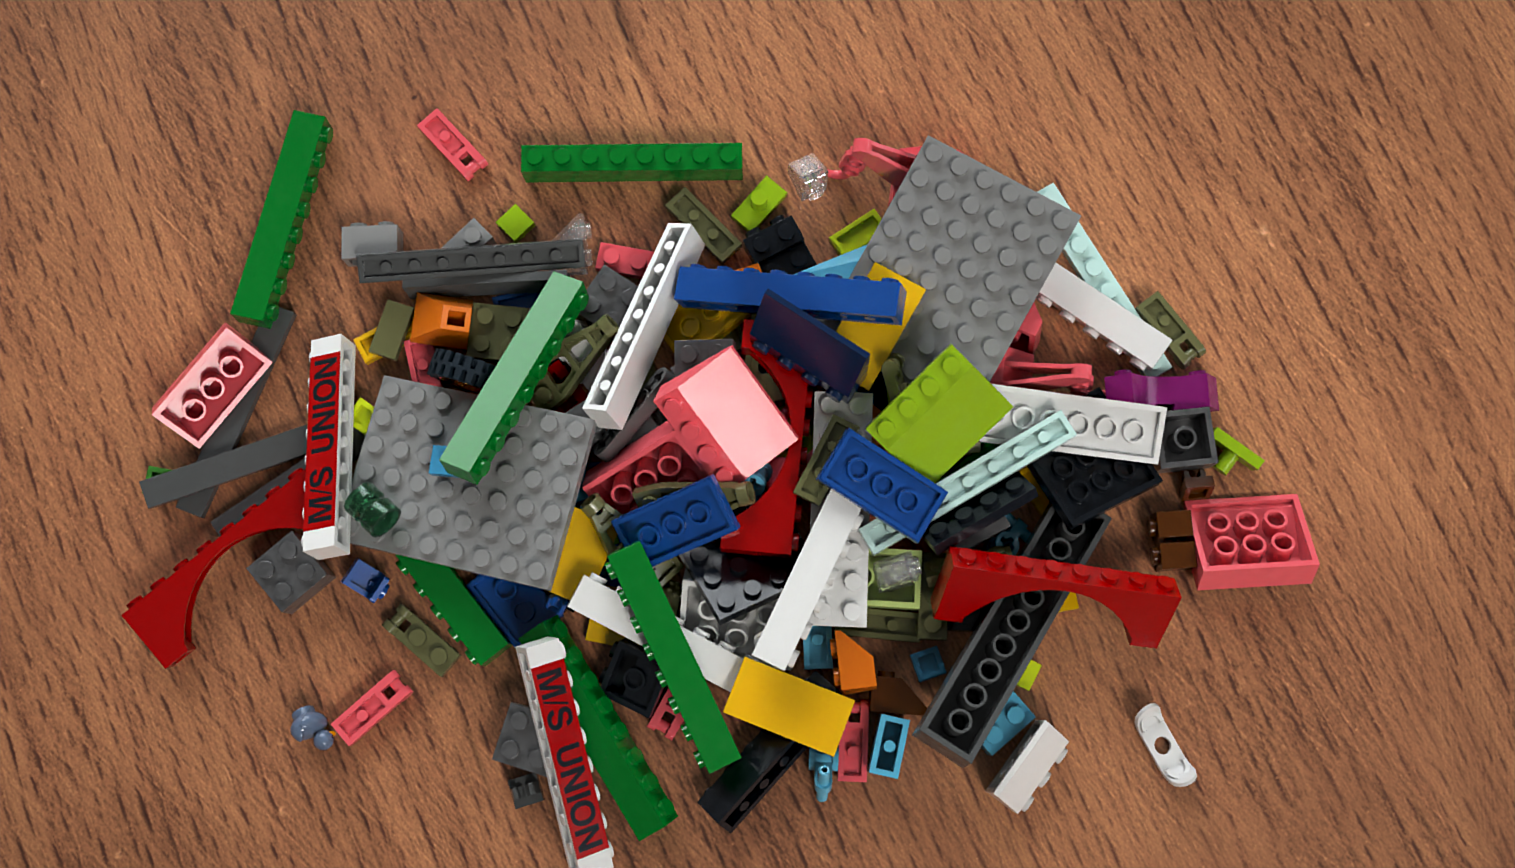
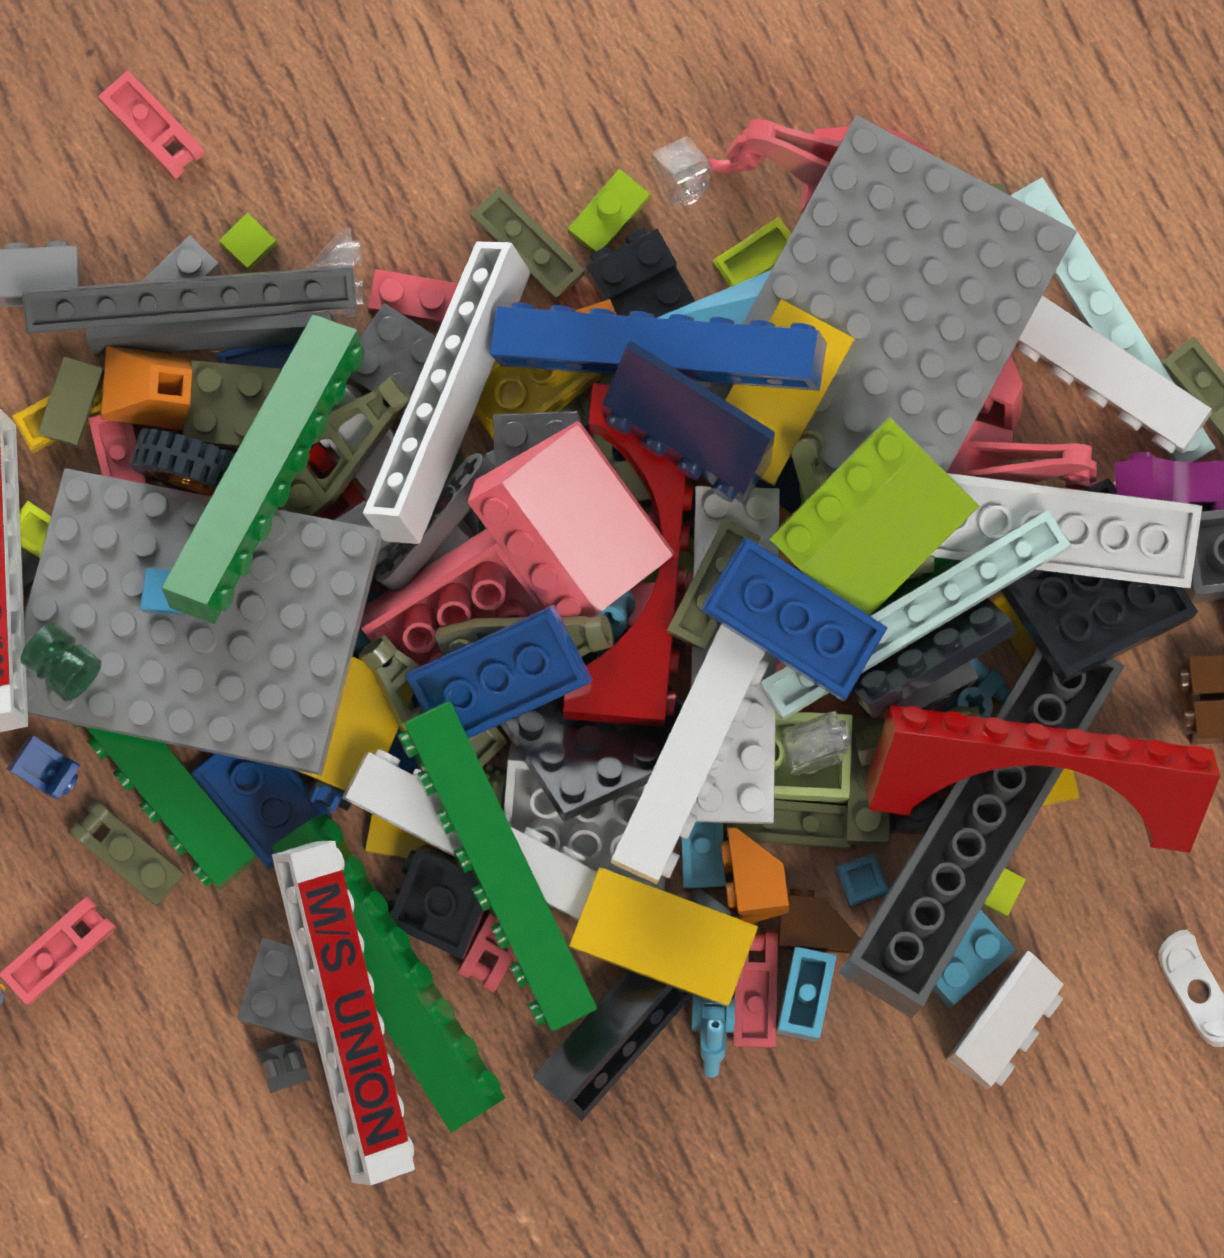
camera: 10 degrees left, 0 degrees up
(632, 162) = (421, 151): green brick -> none

